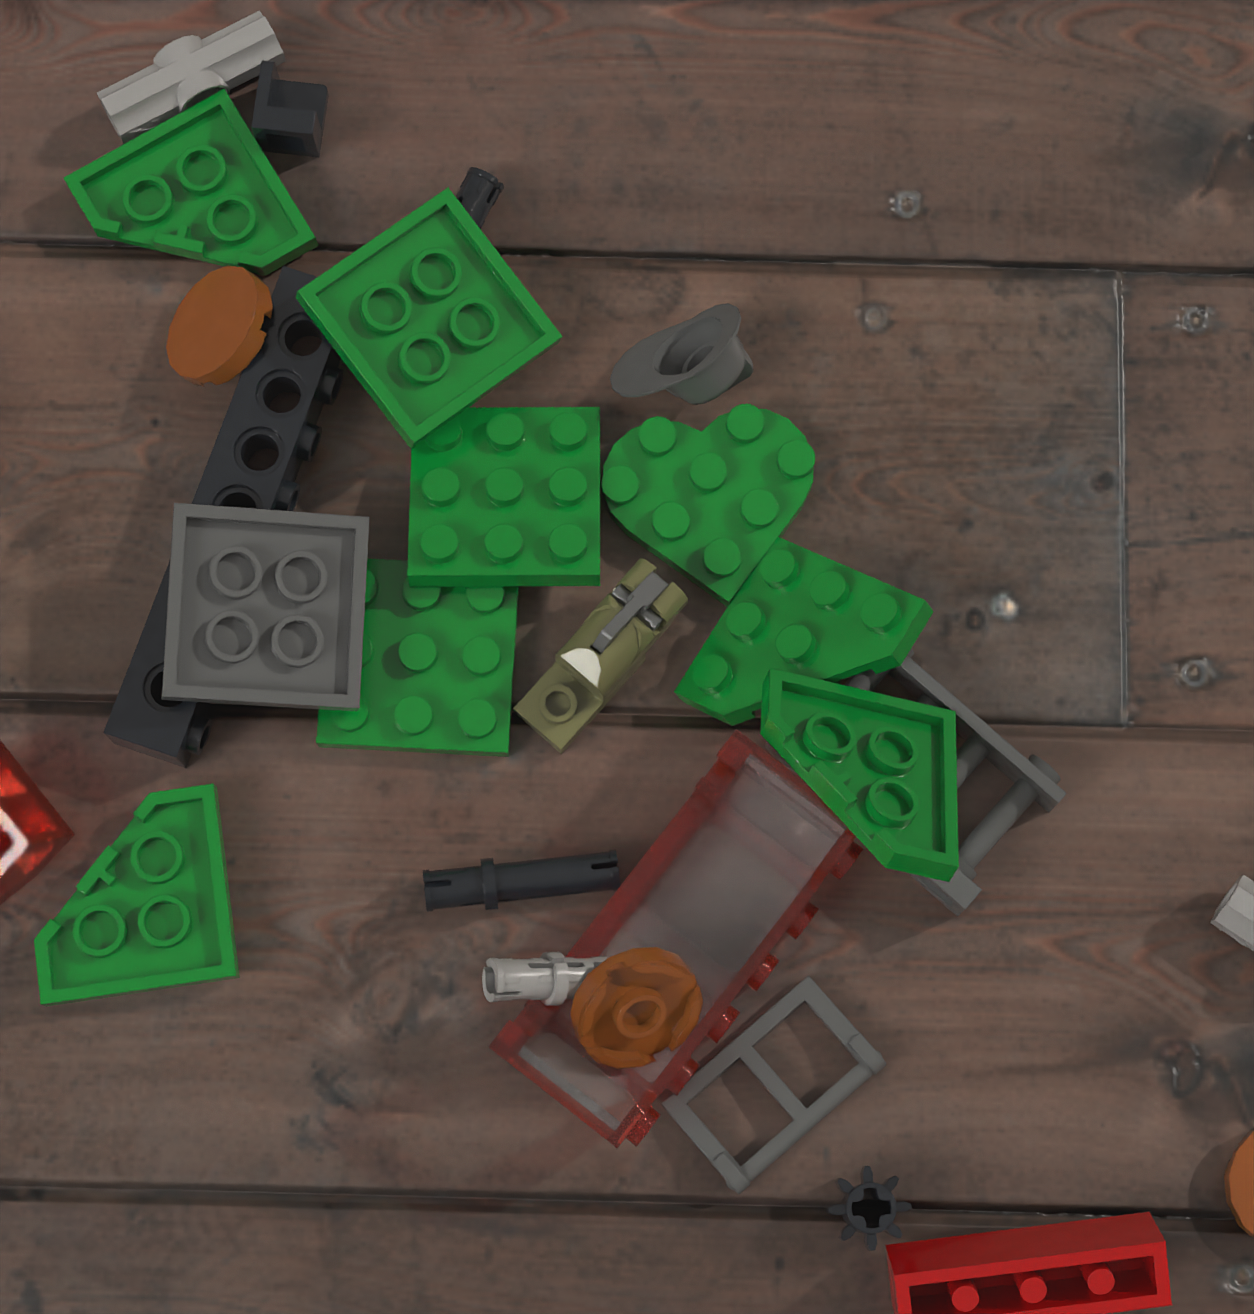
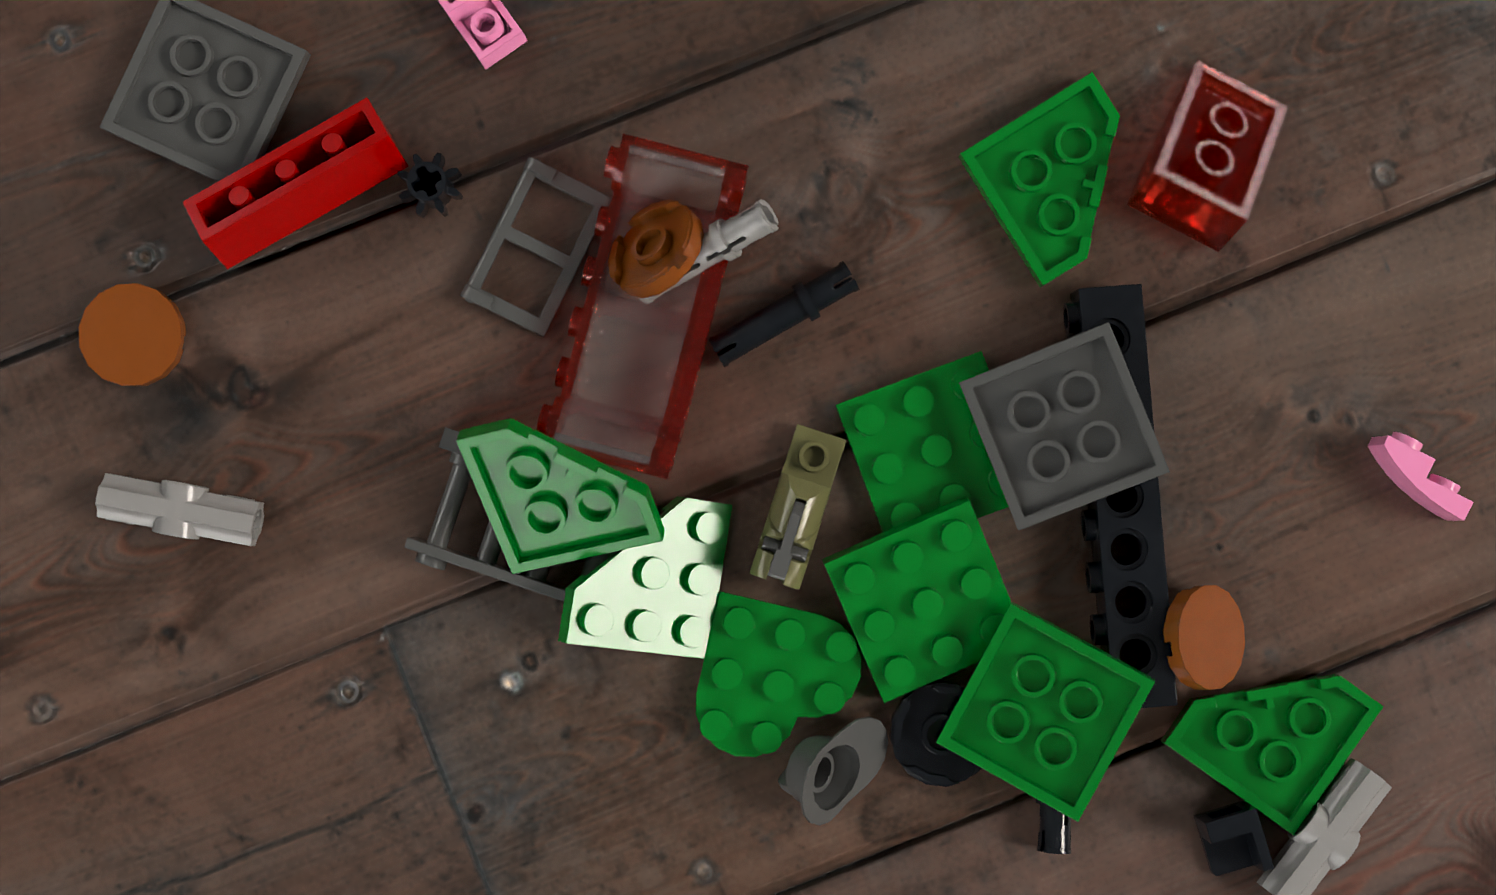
camera: 155 degrees right, 10 degrees up
(572, 368) = (916, 729): none -> black tile

